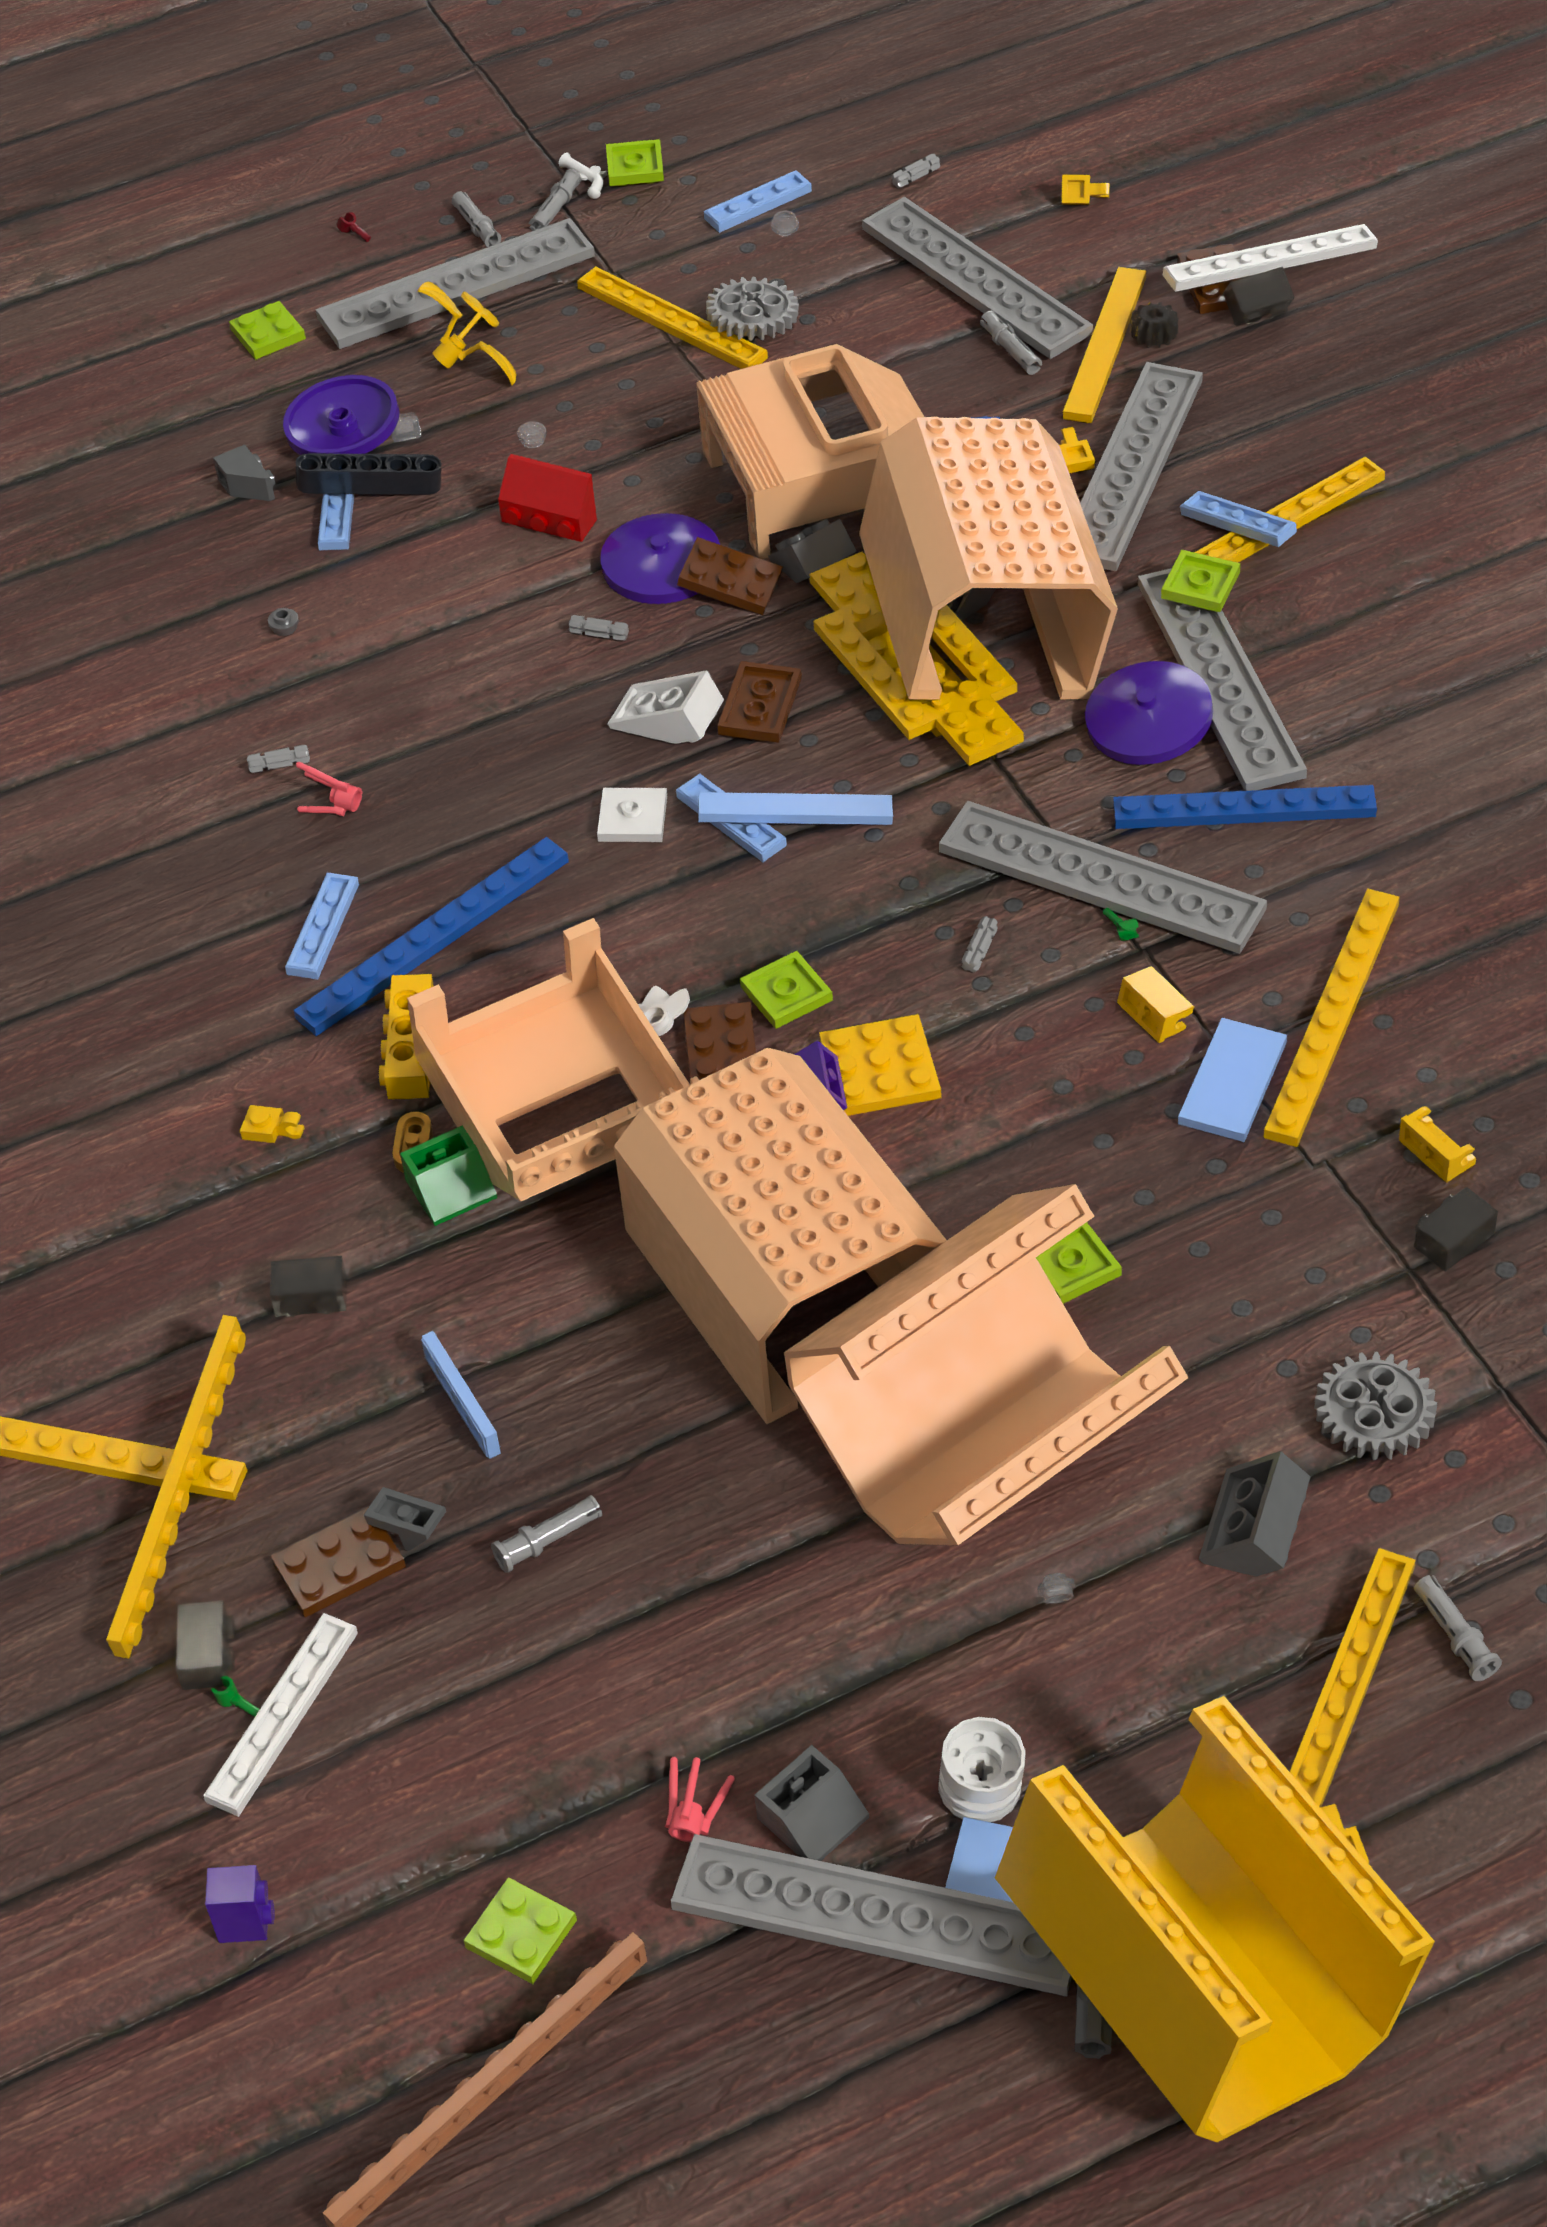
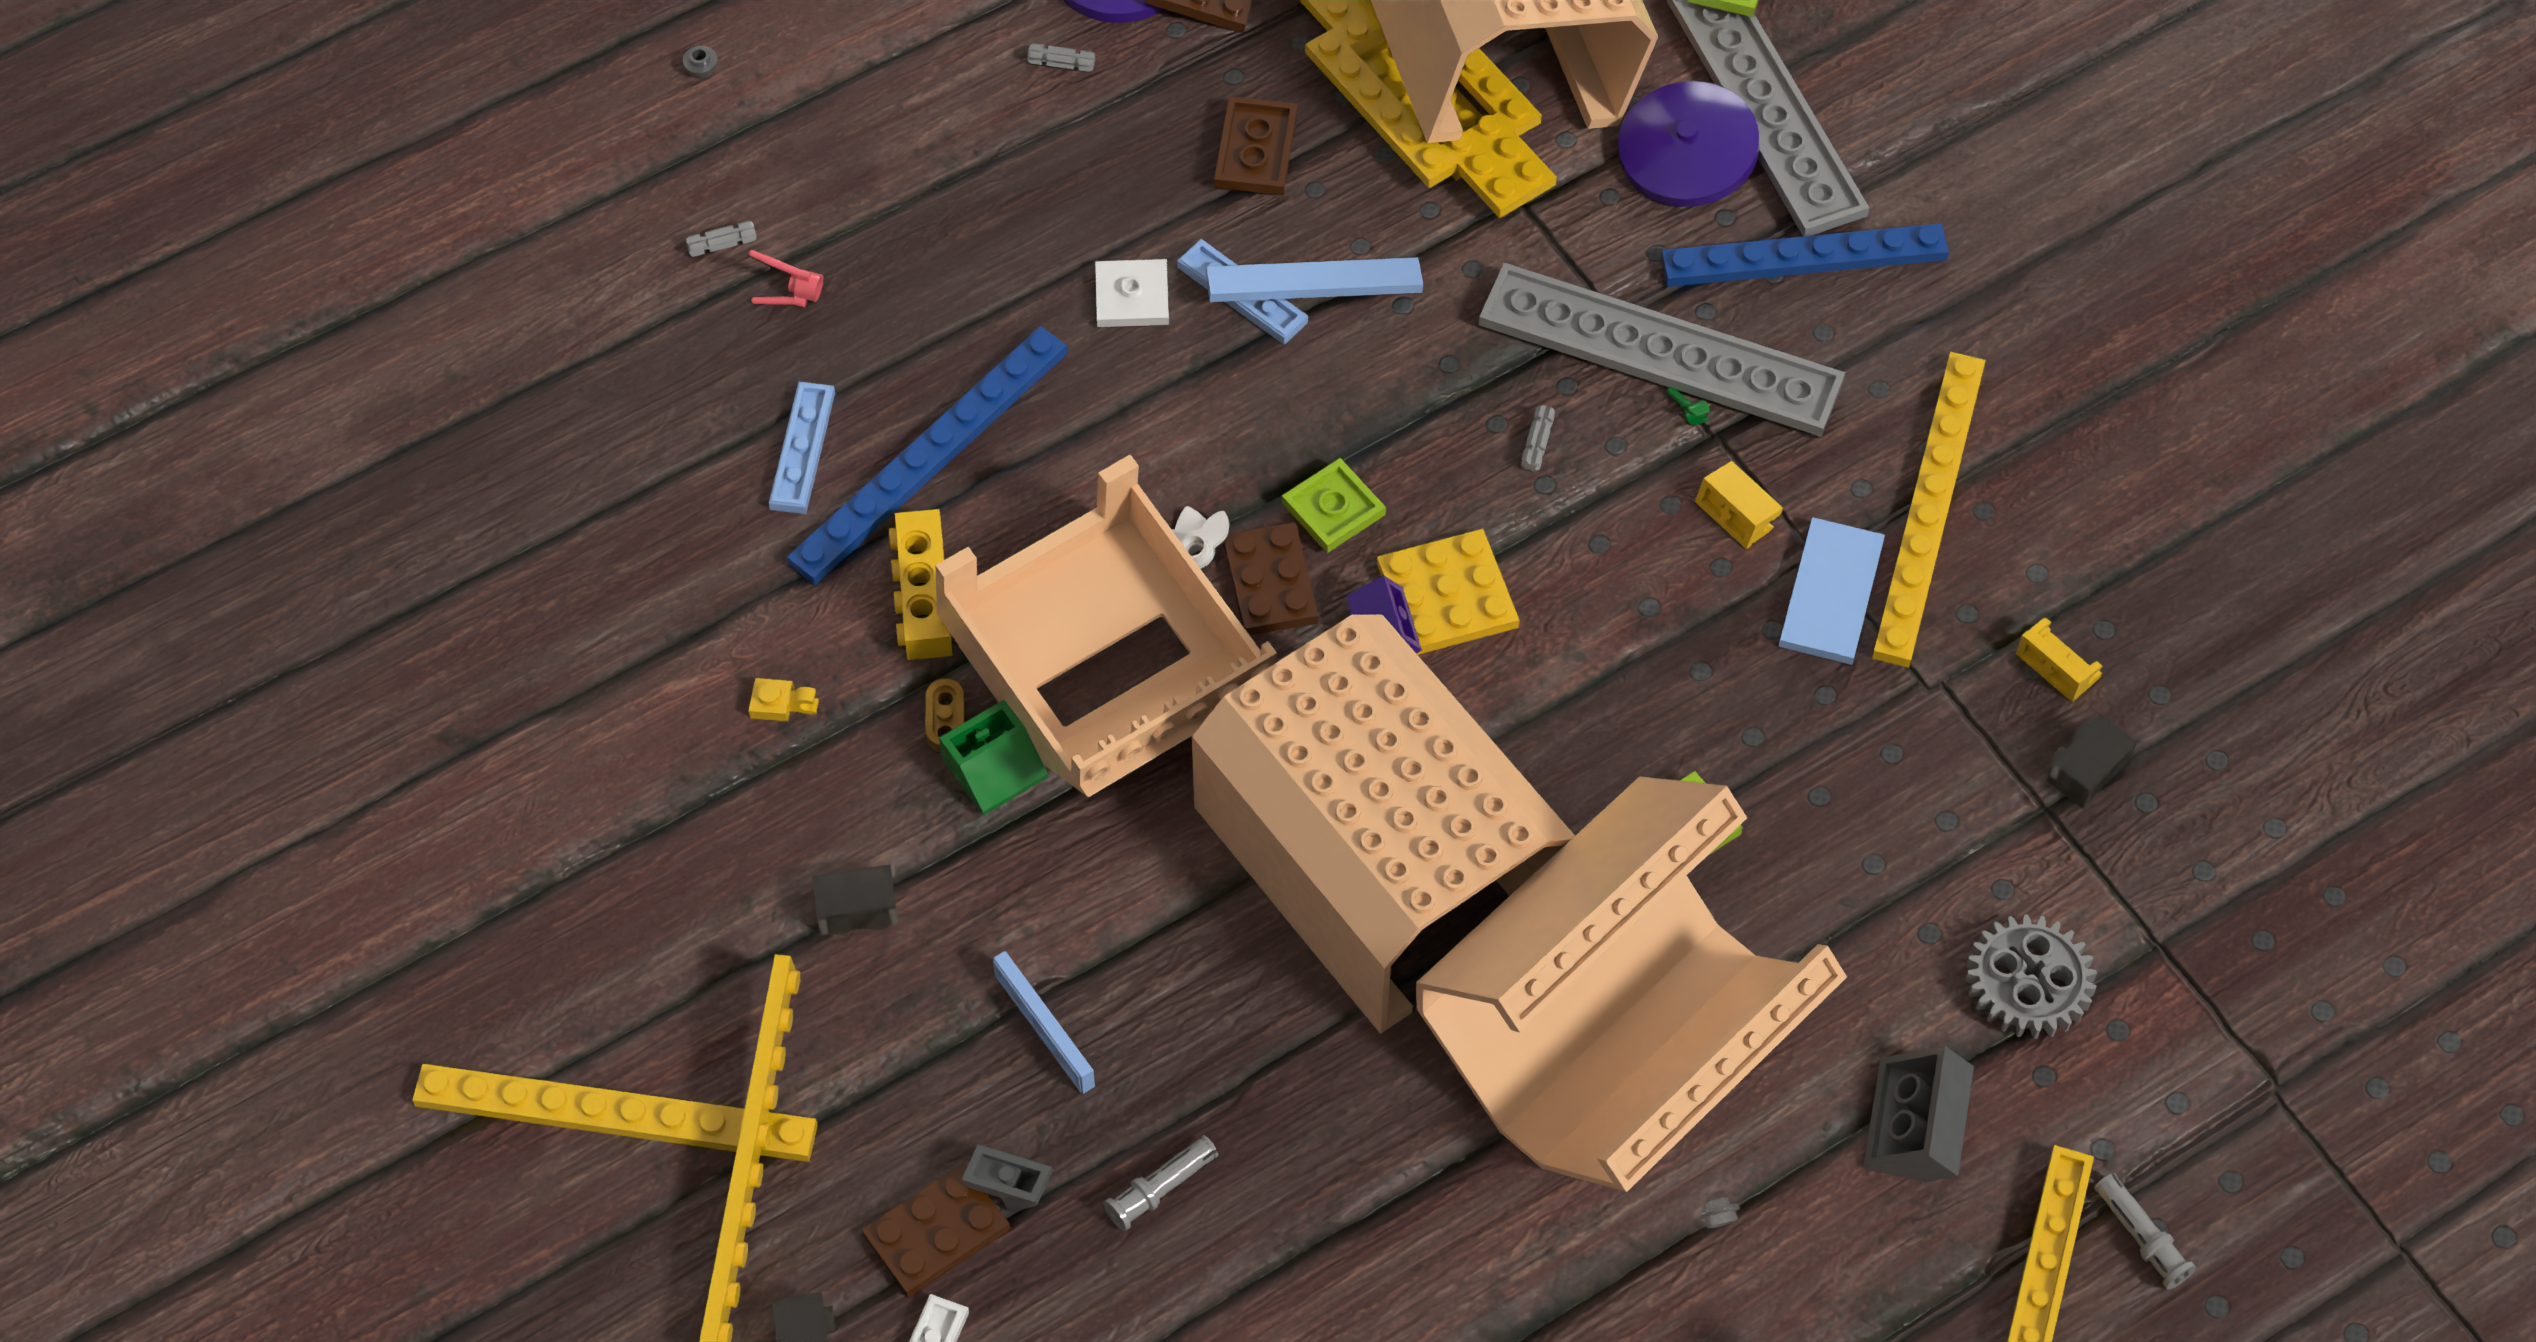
camera: 10 degrees left, 10 degrees up
(669, 708) = (1155, 158): white slope -> none

